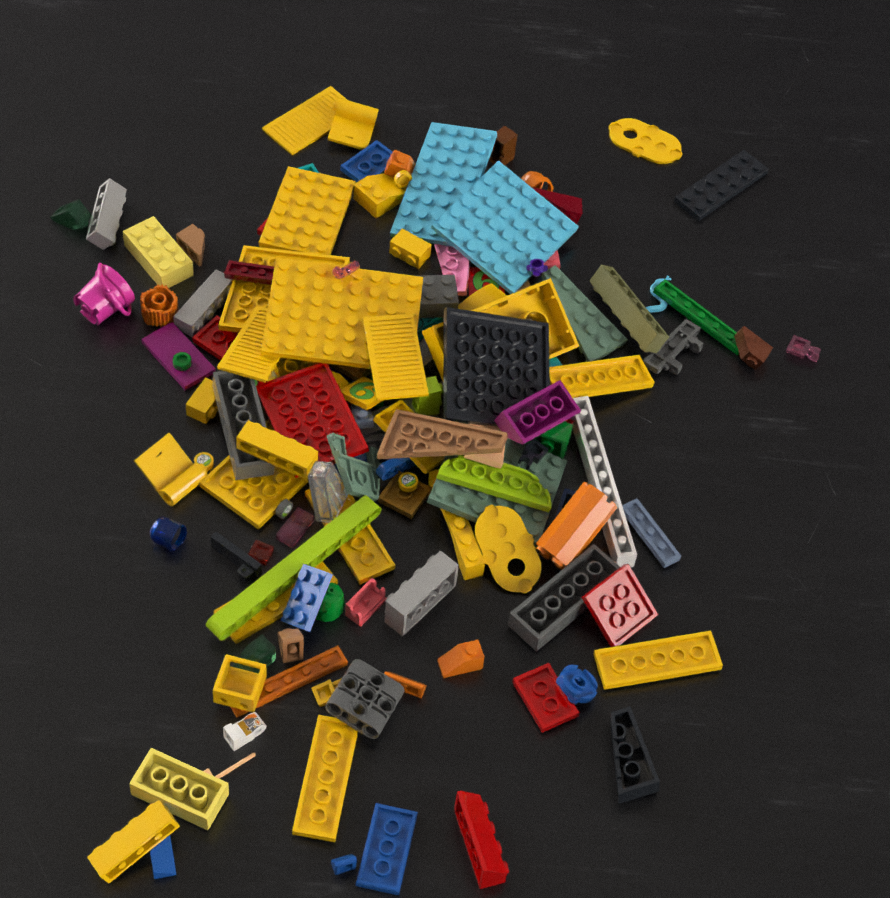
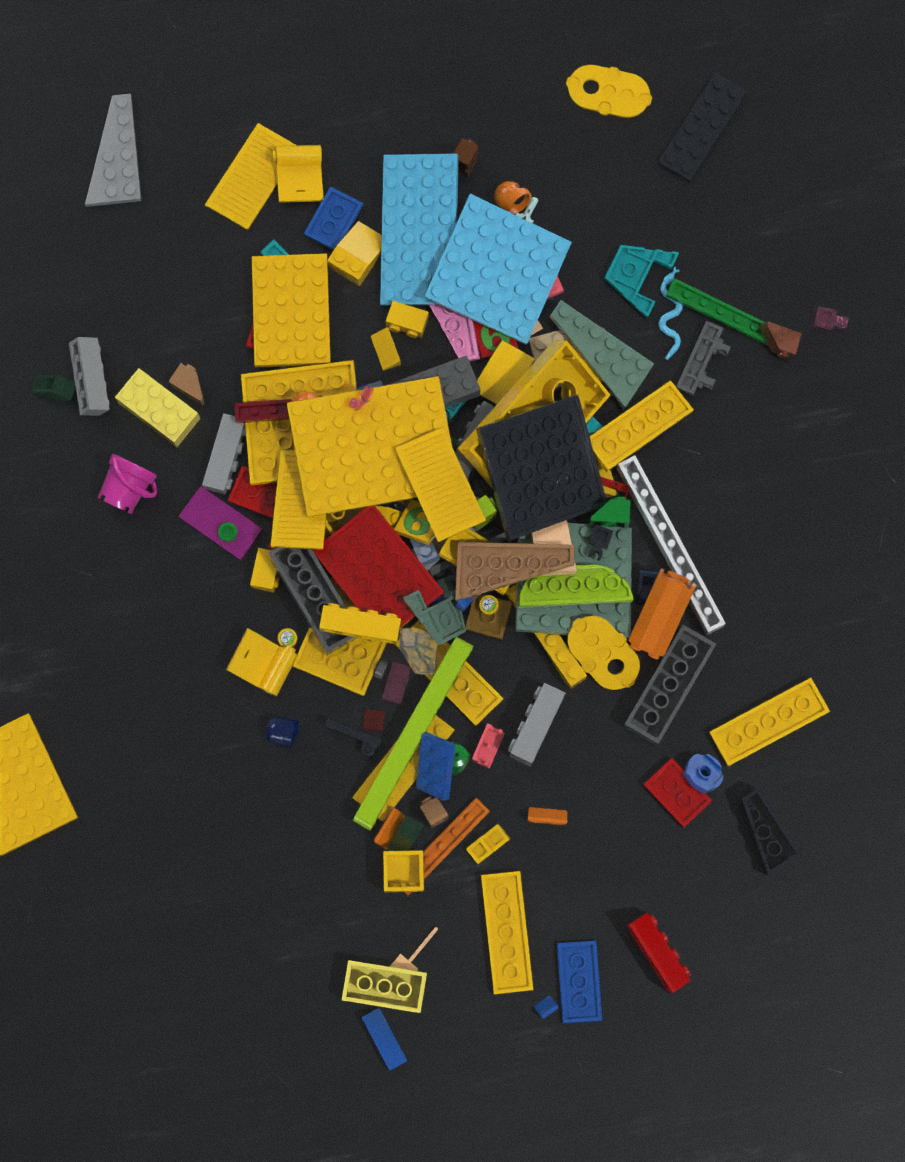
camera: 10 degrees left, 25 degrees up
(133, 841) = (363, 1050): yellow brick -> none
(159, 305) = (174, 469): orange brick -> none
(198, 82) = (116, 165): none -> light grey wing
(238, 644) = (389, 828): none -> orange slope
(243, 731) = (420, 909): white leg -> none
(369, 695) = (529, 865): dark grey connector -> none
(382, 261) = (385, 349): none -> yellow slope
(397, 162) = (366, 219): orange slope -> none
(402, 179) = (374, 236): yellow tile -> none
(462, 659) = (591, 779): orange slope -> none
(537, 267) = (543, 305): dark purple plate -> none
(538, 413) = (595, 503): magenta slope -> none
(568, 205) = (548, 216): dark red slope -> none
(619, 606) = (722, 681): plate -> none
(629, 309) = (647, 331): olive brick -> none
(633, 262) = (630, 271): none -> teal wing
(650, 533) = (730, 586): sand blue plate -> none

